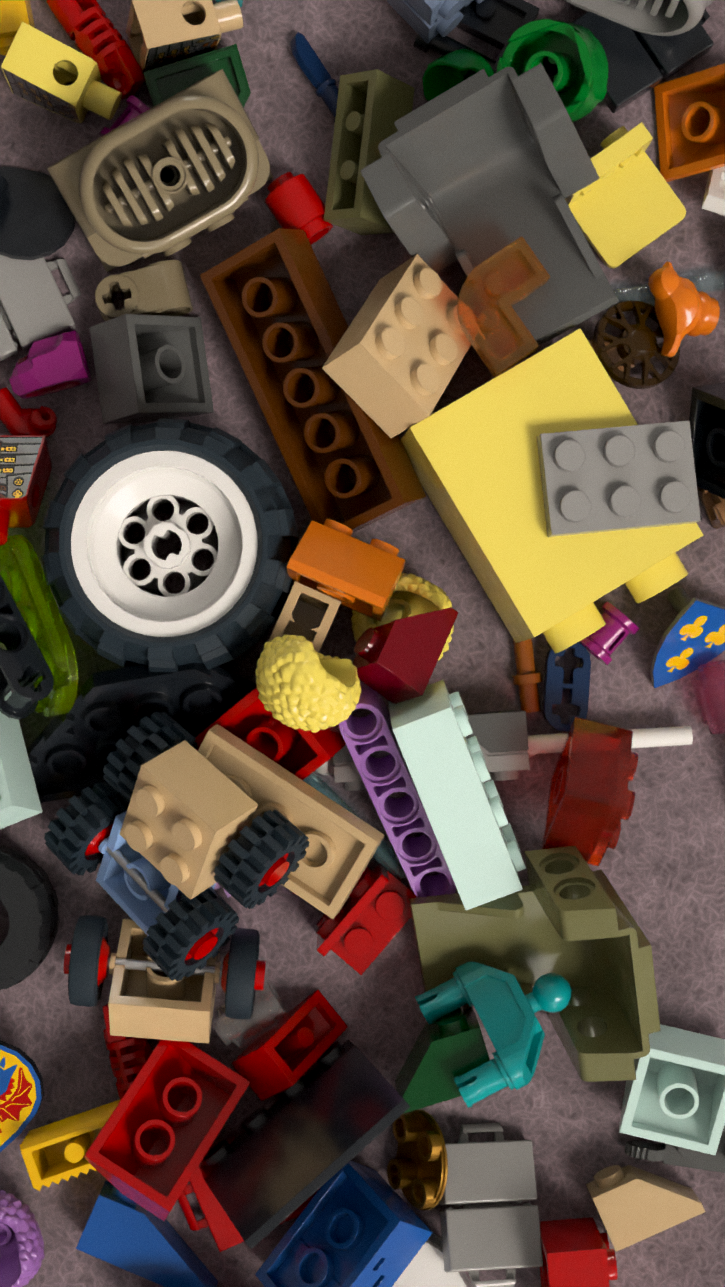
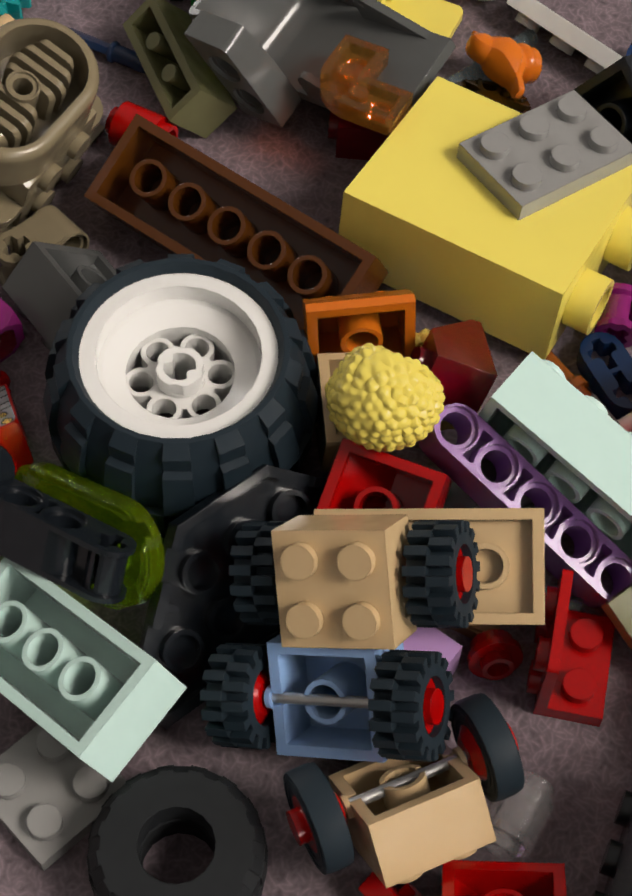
camera: 30 degrees left, 30 degrees down
(291, 1048) = (579, 825): red slope -> none
(401, 347) = (298, 157): tan brick -> none

